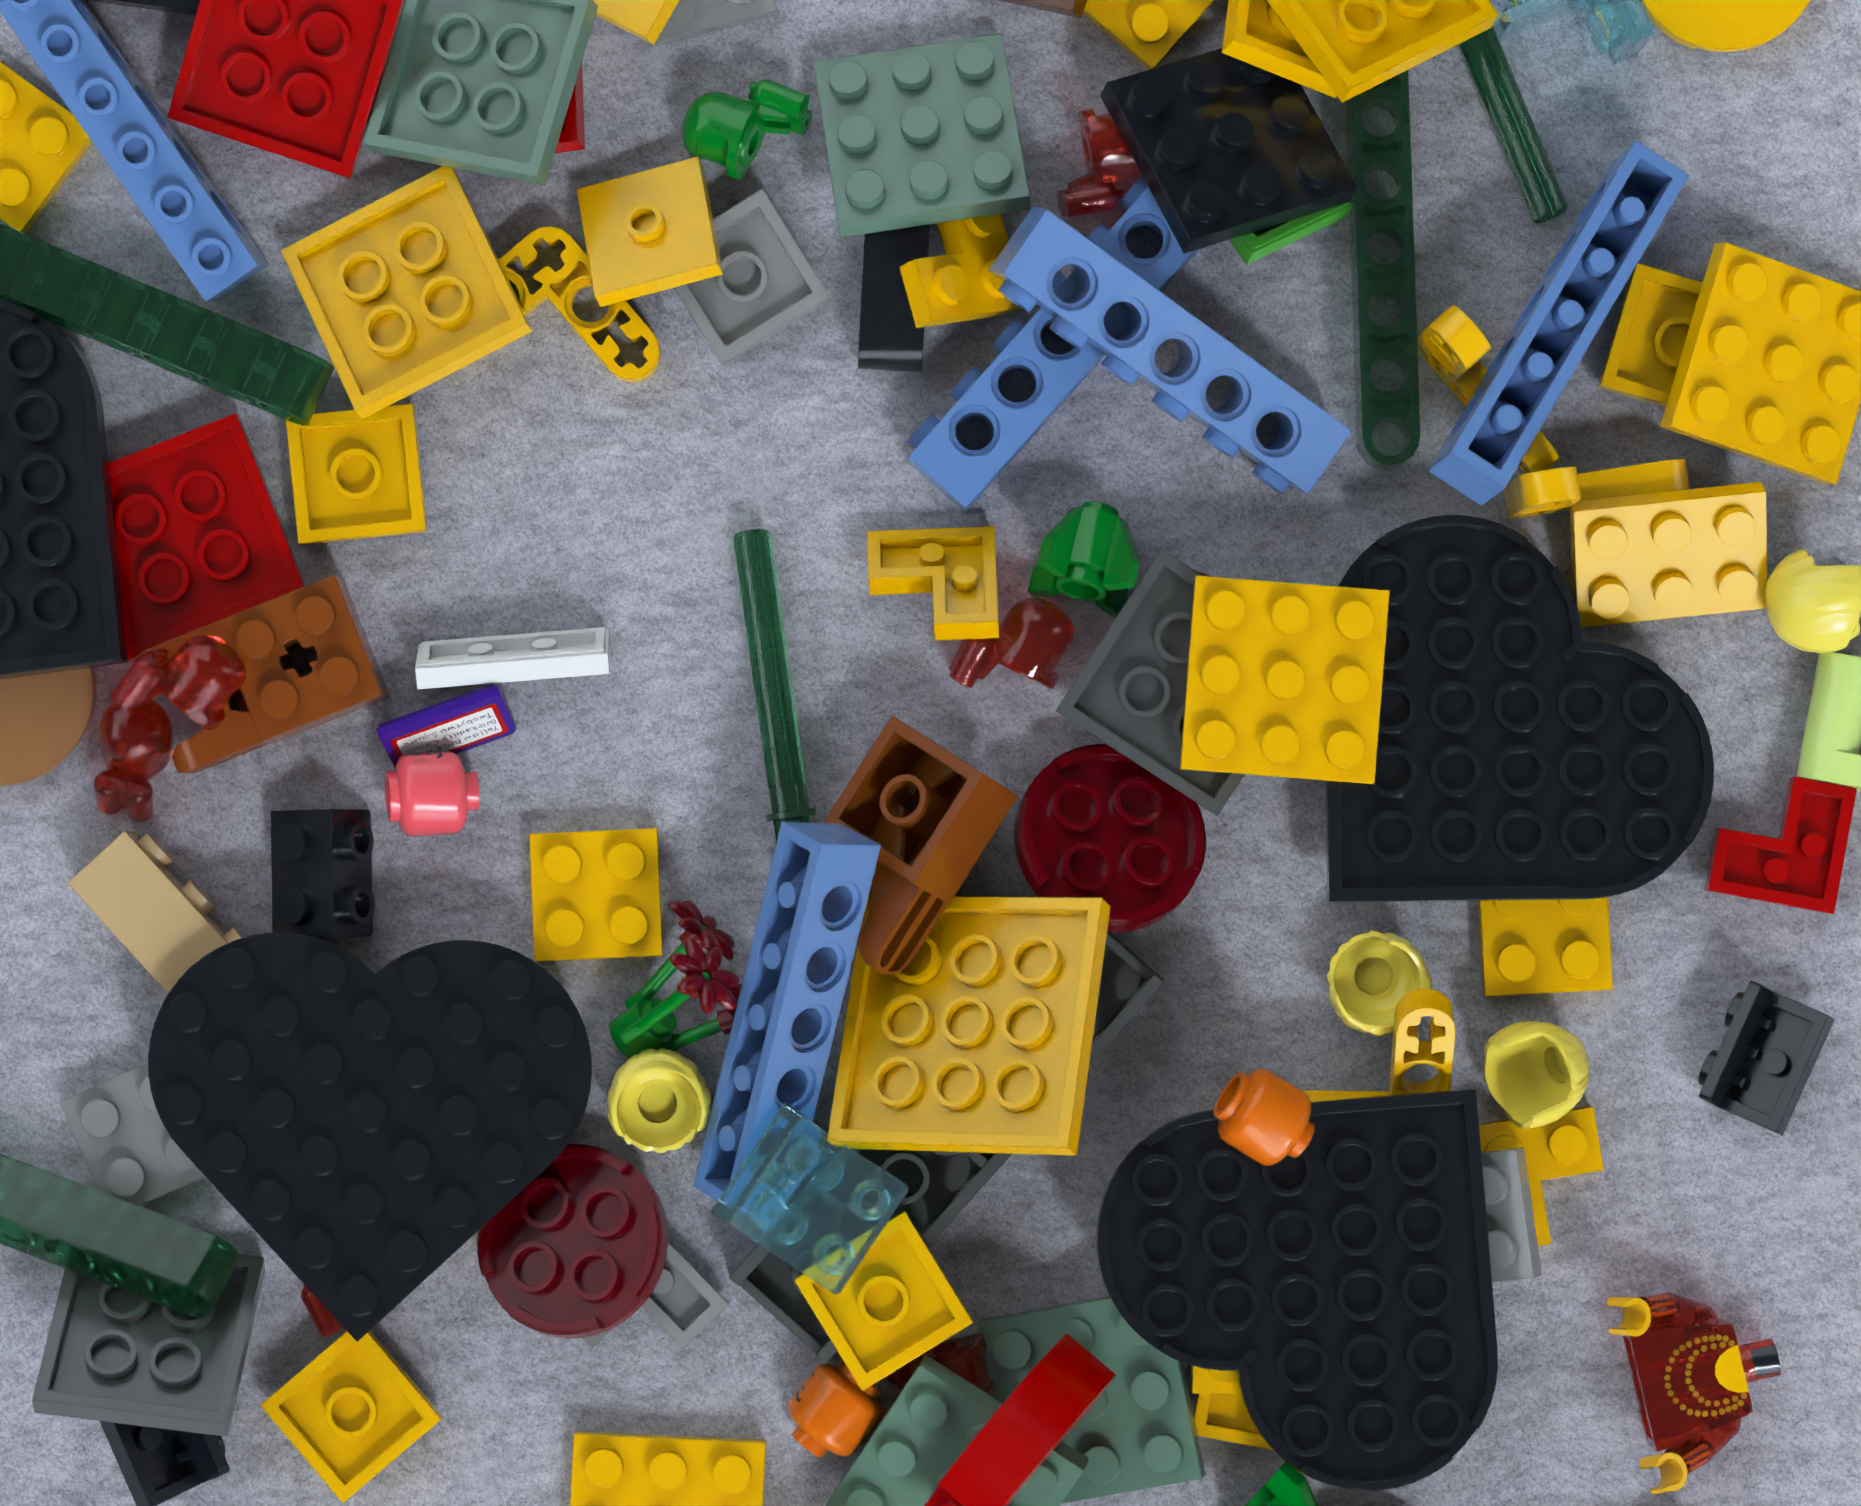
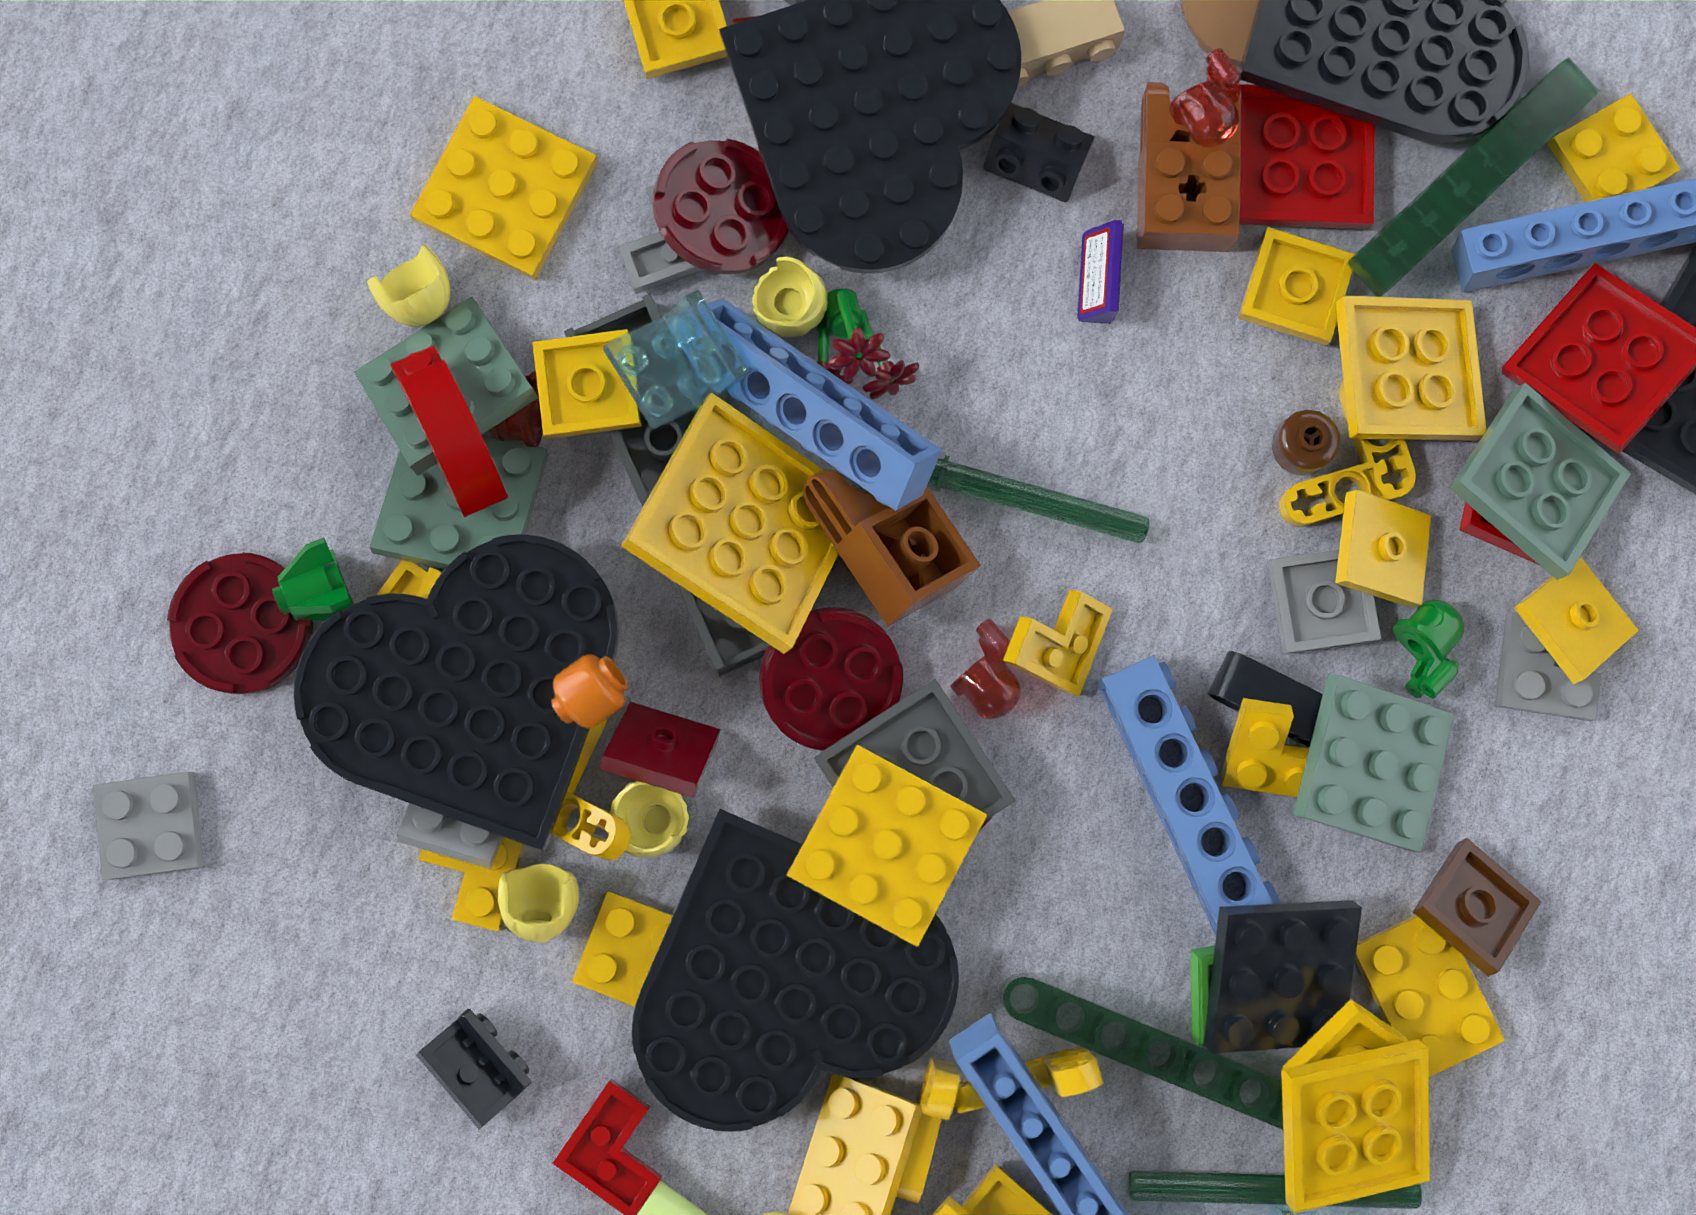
camera: 115 degrees right, 5 degrees down
(134, 750) = (1174, 63): clear red piece -> none
(430, 793) = (1061, 242): coral head -> none
(513, 658) = (1129, 334): white tile -> none
(562, 404) = (1305, 457): none -> reddish brown head
(596, 894) = (945, 323): yellow plate -> none
(834, 1411) = (526, 322): orange head -> none
(1088, 558) = (1031, 748): green brick -> none
(1106, 164) = (1299, 885): clear red piece -> none
(1288, 1006) = (660, 749): none -> dark red plate
(1306, 433) = (1051, 941): medium blue brick -> none
(1688, 1379) = (279, 911): clear red torso -> none

